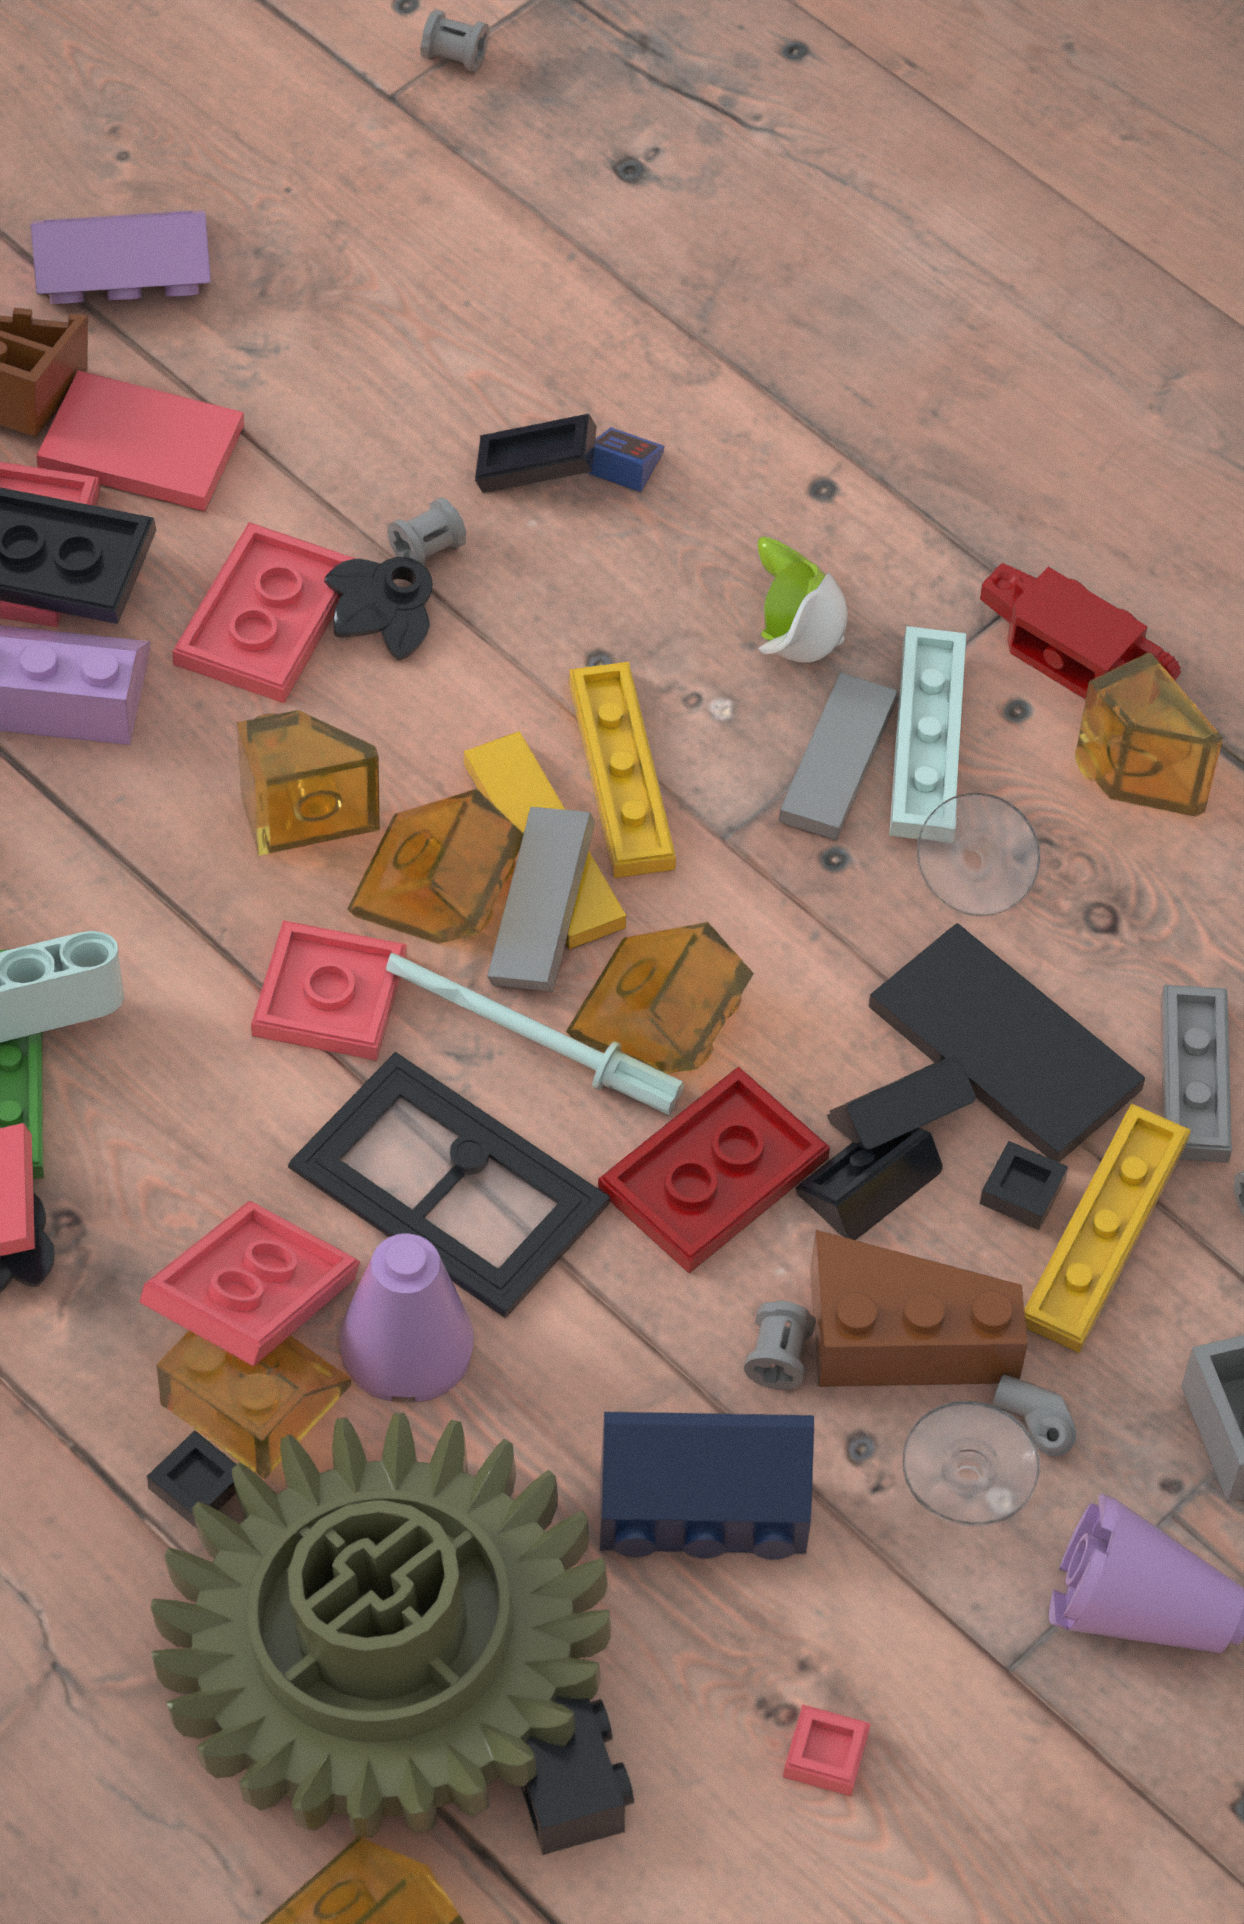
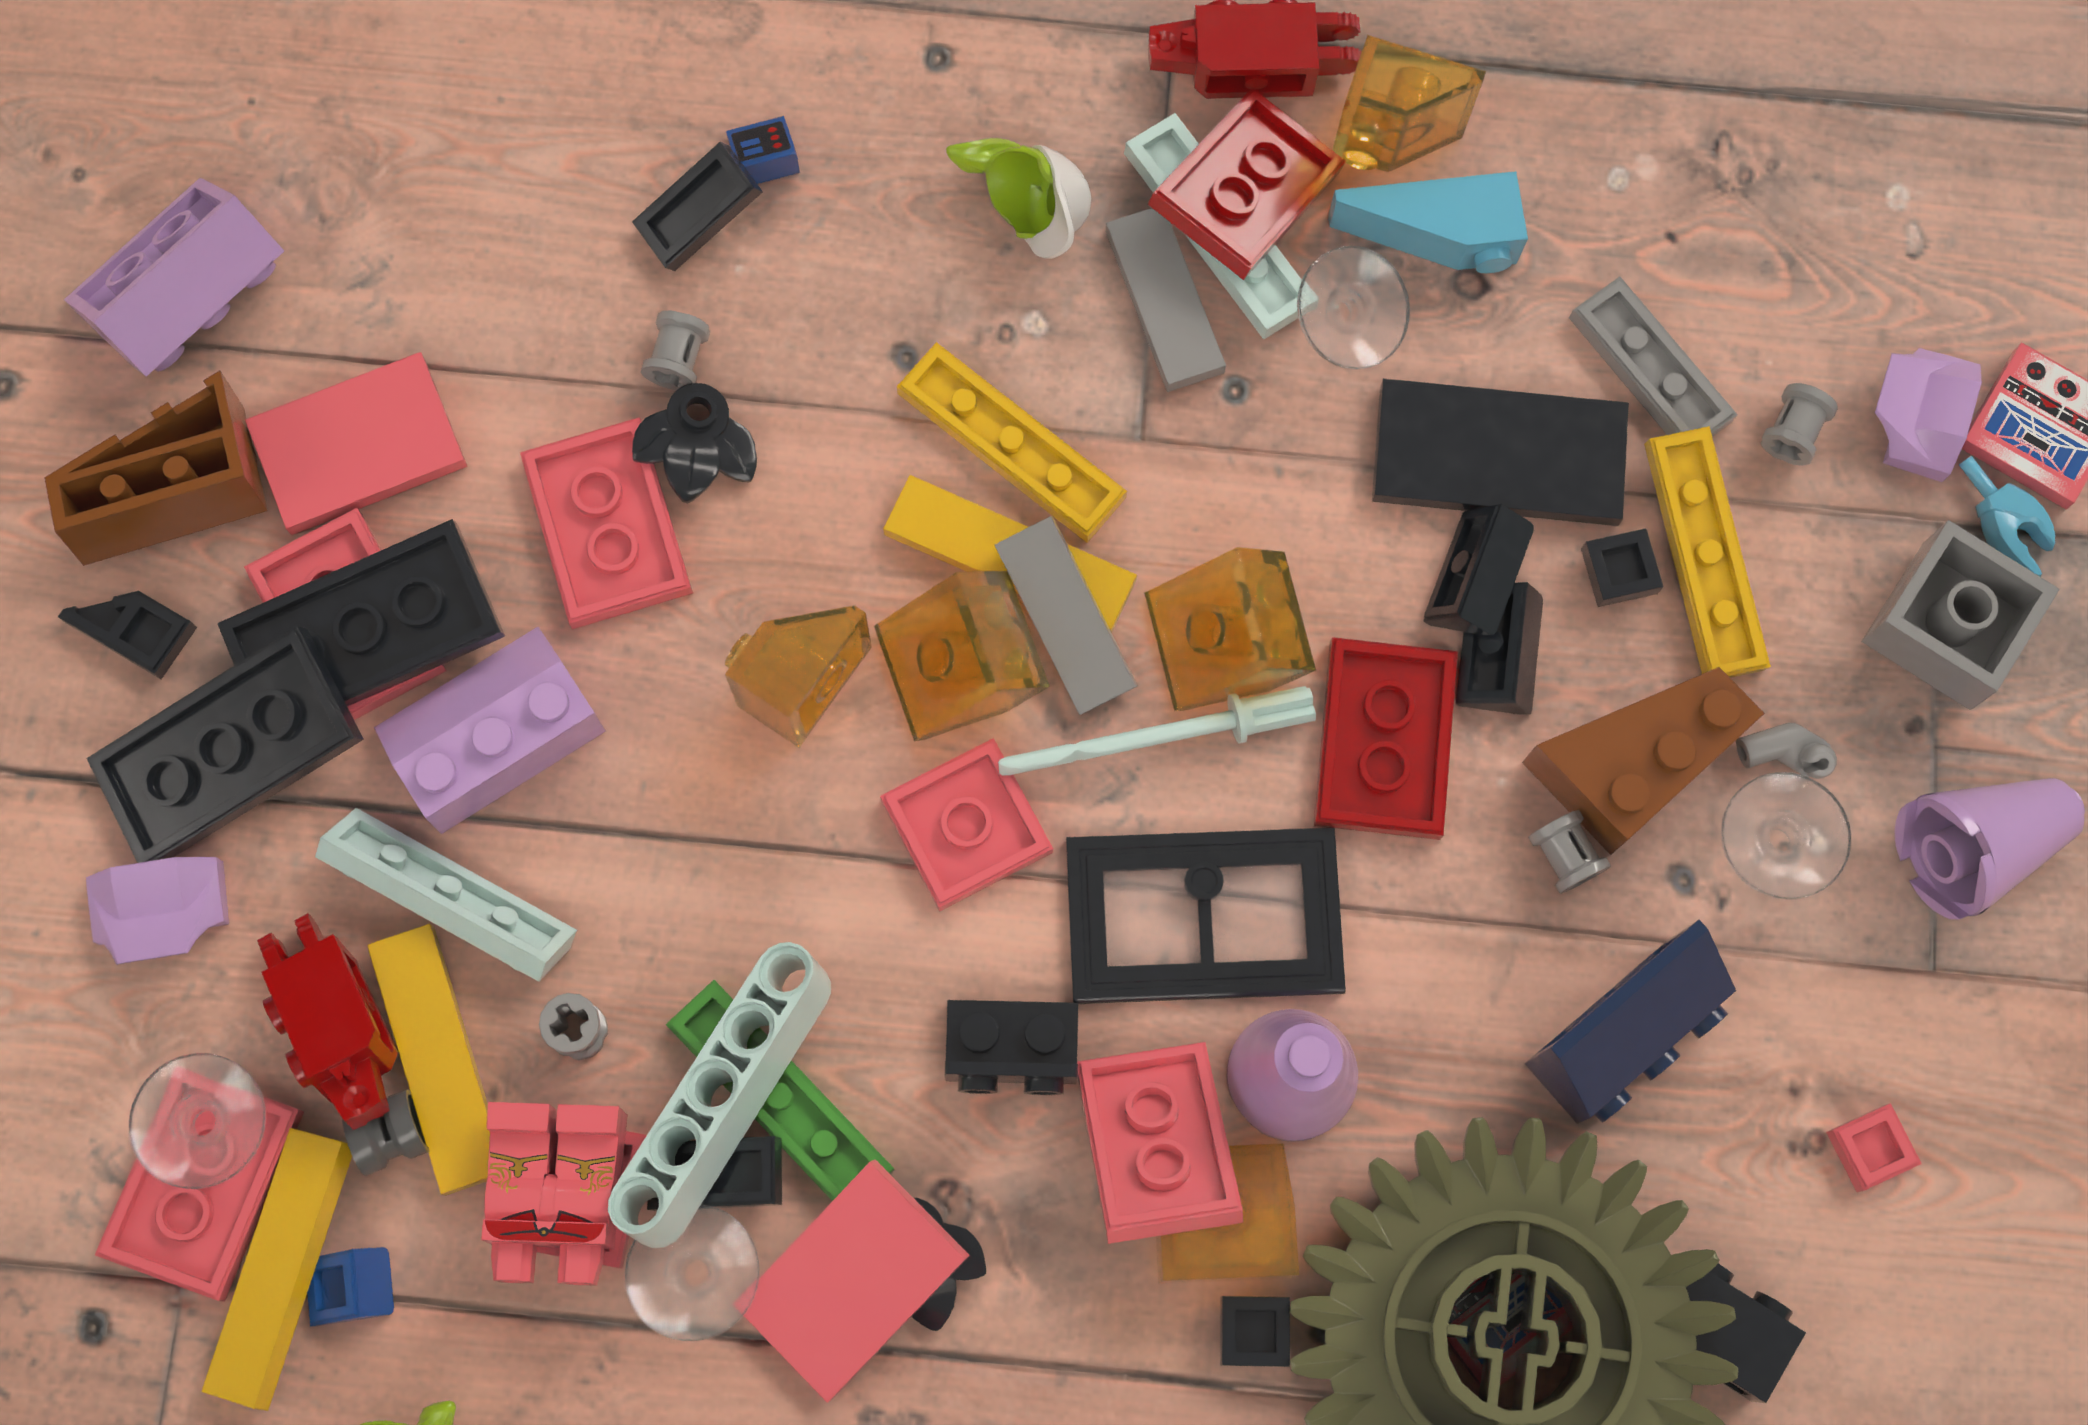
camera: 40 degrees left, 20 degrees up
(211, 1153) = (1011, 1045): none -> black bracket
(975, 714) = (1246, 183): none -> tile
(1116, 850) = (1445, 221): none -> medium azure slope

